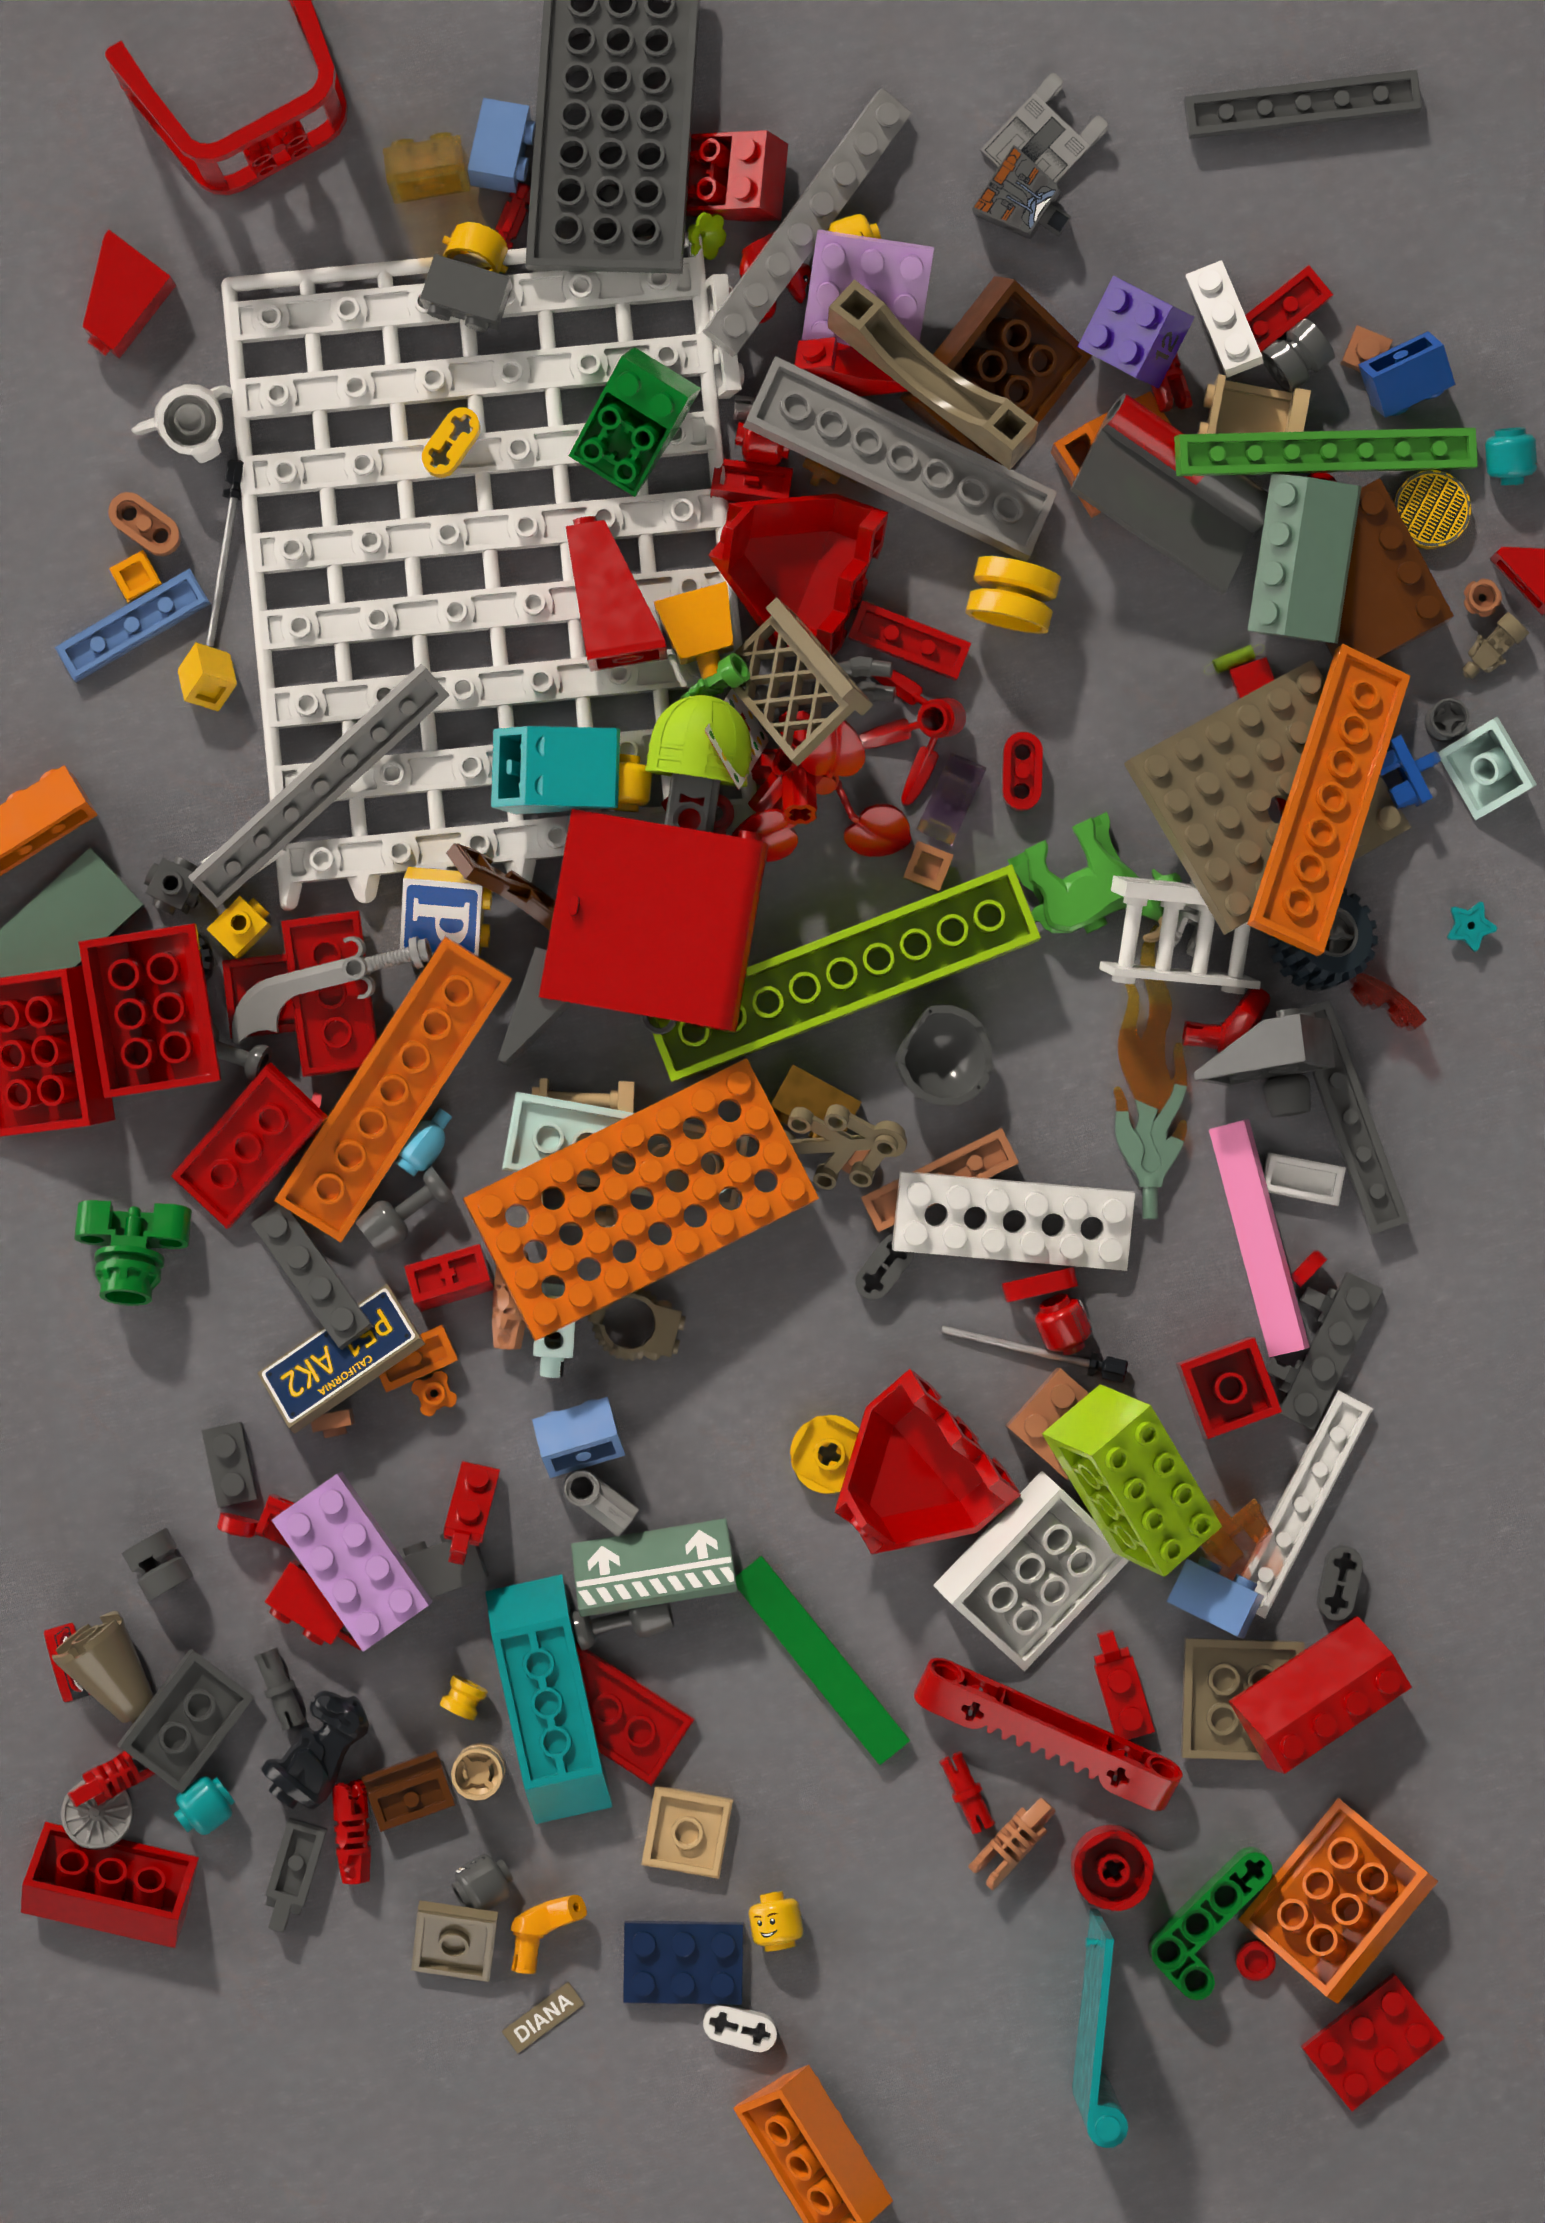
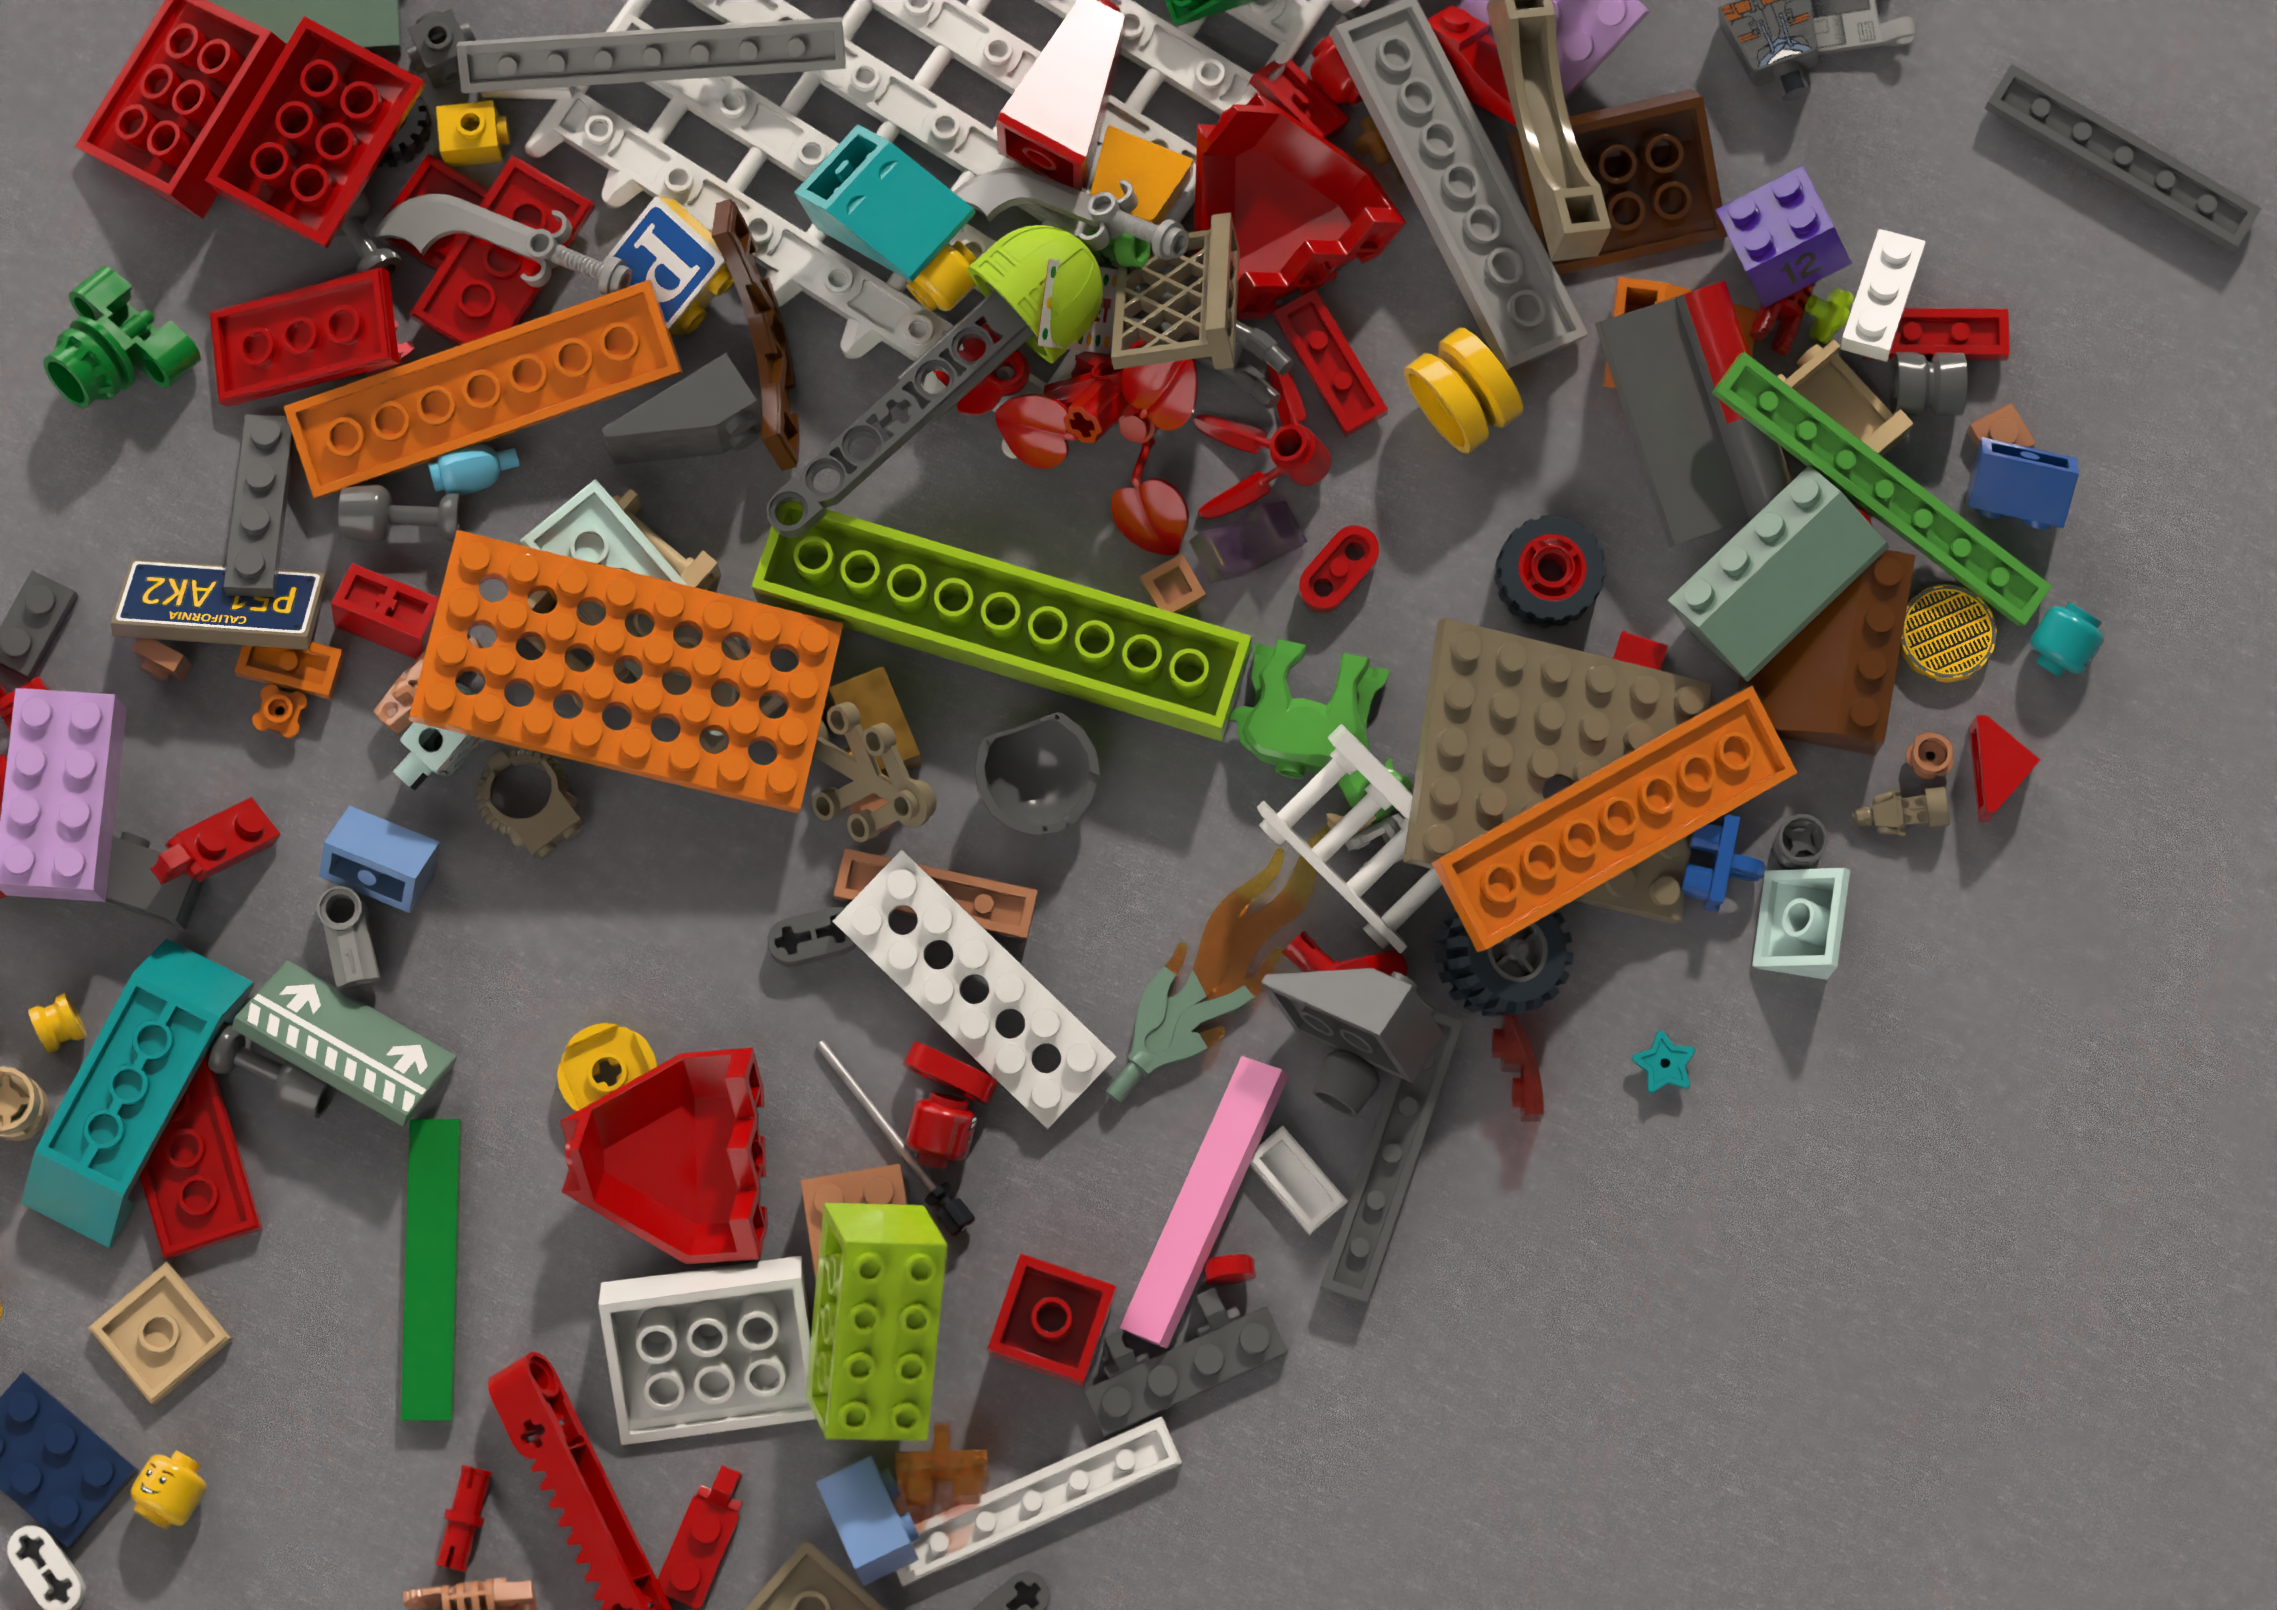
camera: 40 degrees right, 10 degrees down
(617, 691) = (1012, 186): none -> light grey sword
(657, 919) = (862, 417): red door -> none
(1172, 650) = (1555, 542): none -> black wheel
(1200, 358) = (1829, 314): none -> lime plant
(1233, 659) = (1635, 625): lime piece -> none

